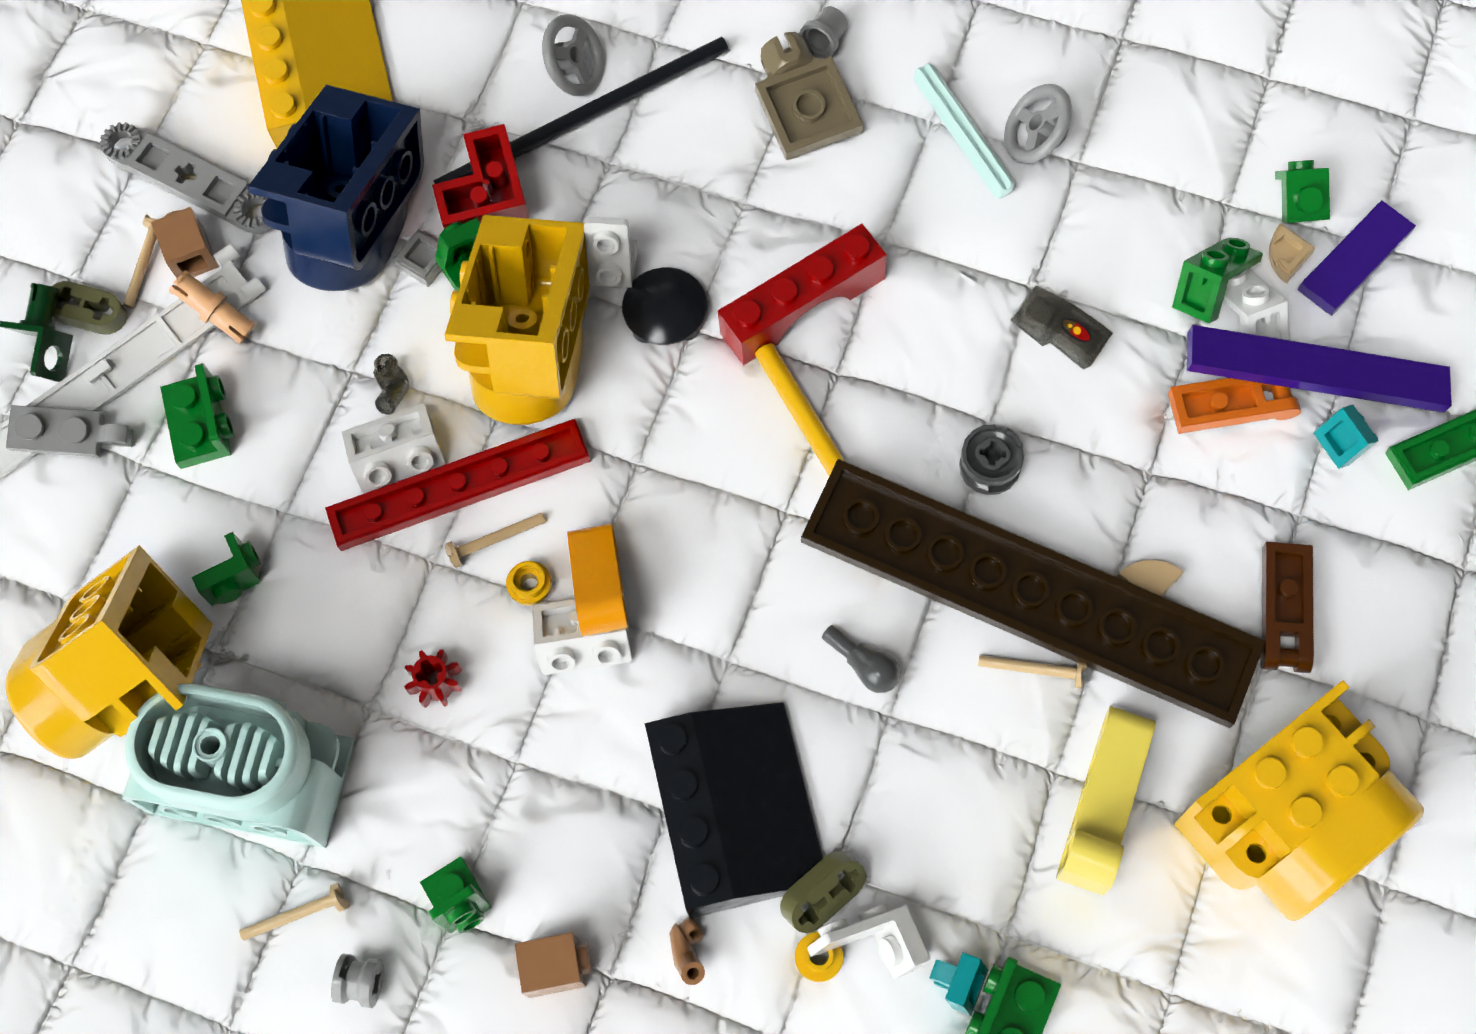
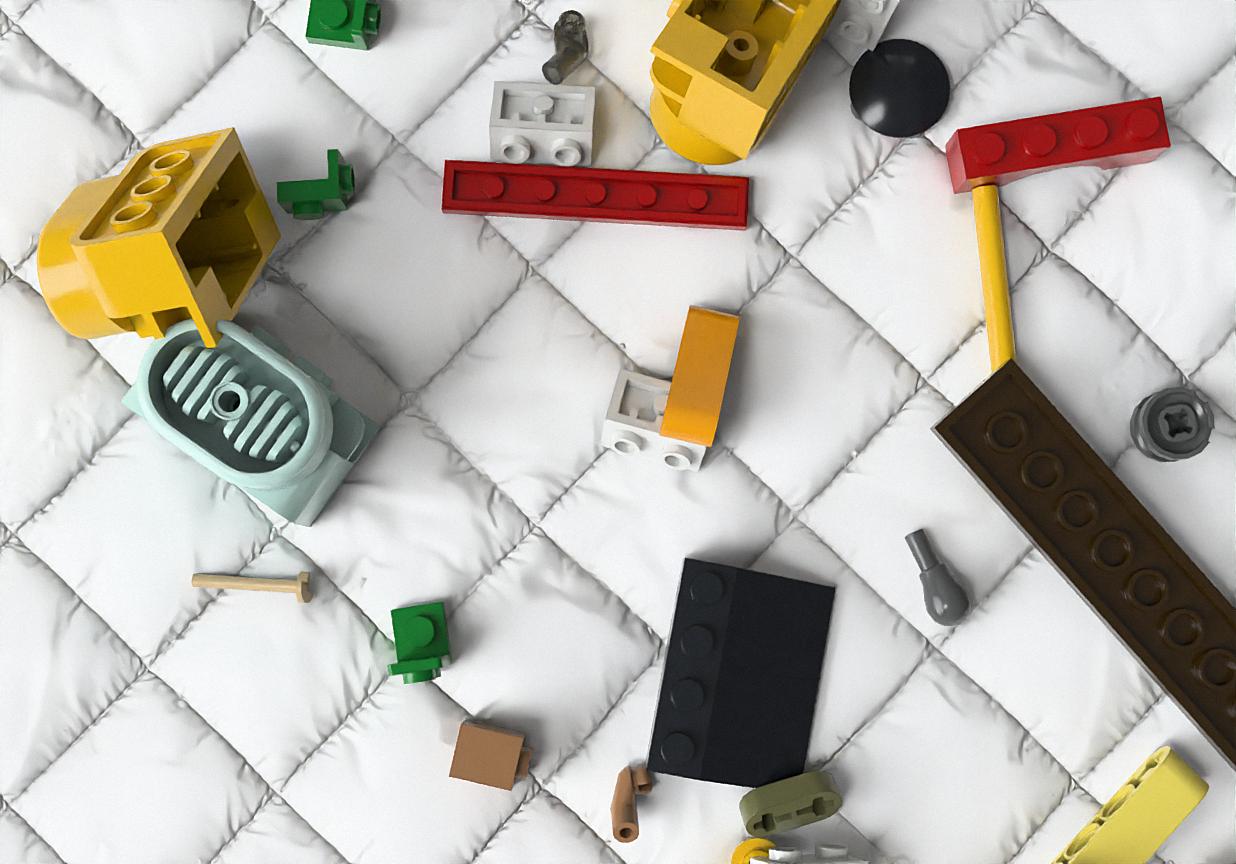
camera: 15 degrees right, 15 degrees up
(357, 980) = (294, 687): light grey wheel -> none
(420, 674) = (475, 393): red gear -> none
(491, 538) = (637, 272): tan piece -> none
(522, 572) = (632, 325): yellow plate -> none
(1035, 668) = (1149, 694): tan piece -> none

